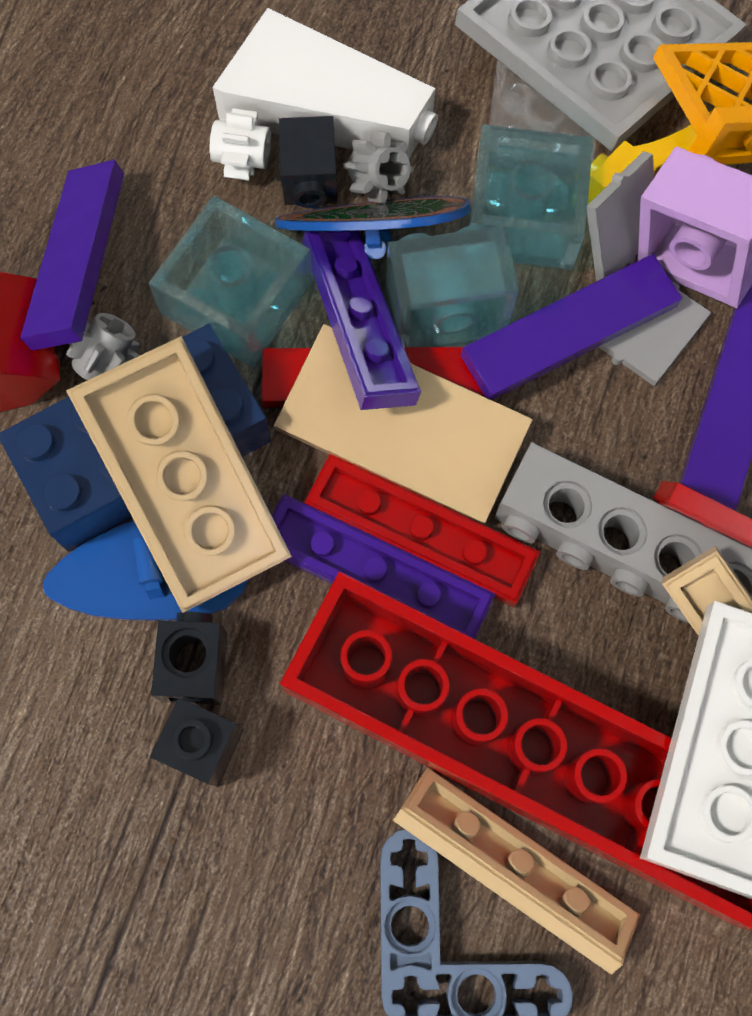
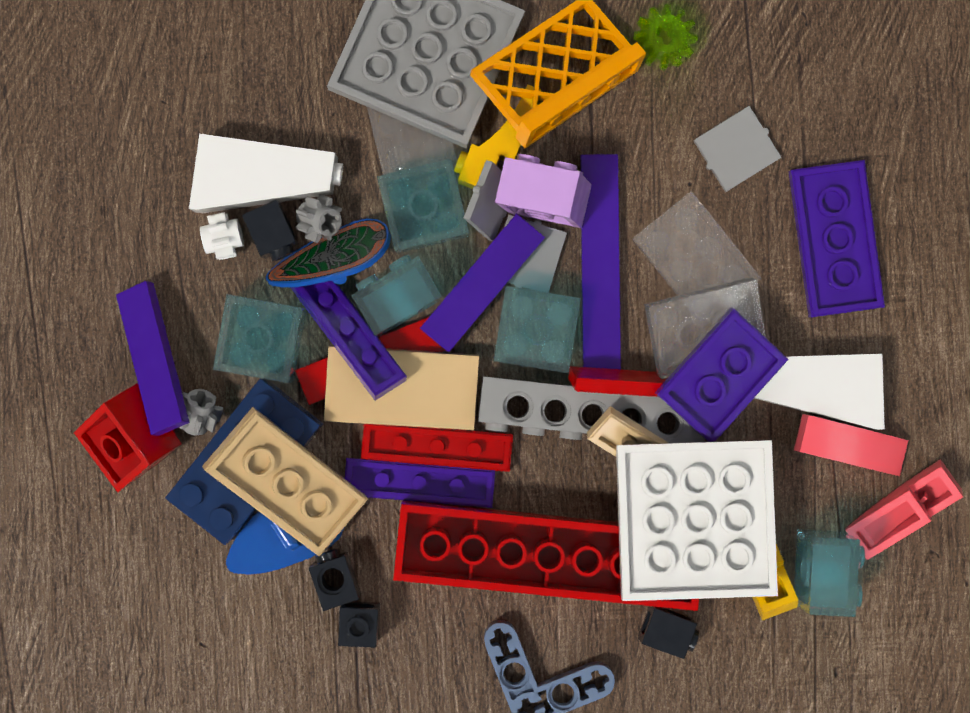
camera: 20 degrees left, 15 degrees up
(519, 870) = (562, 621): tan tile -> none
(629, 414) = (536, 329): none -> clear light blue brick
(689, 956) = (668, 631): none -> black brick

